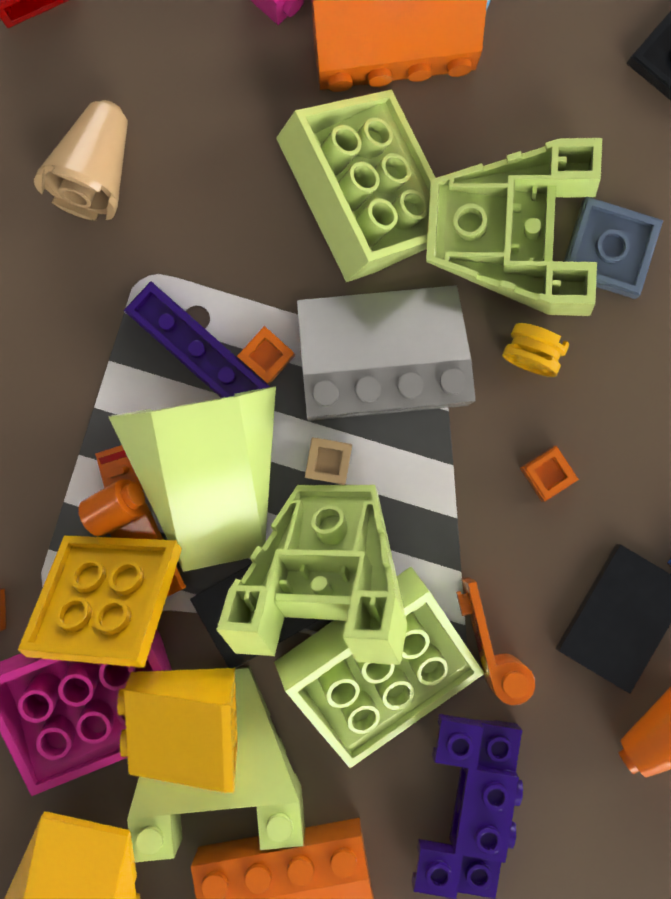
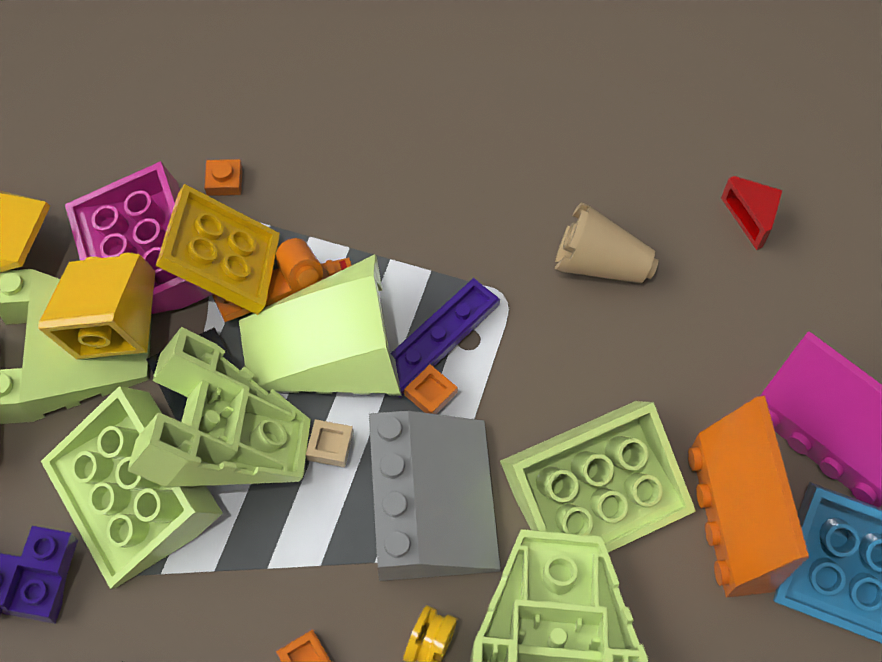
camera: 90 degrees right, 25 degrees down
(503, 672) = (104, 599): orange door -> none

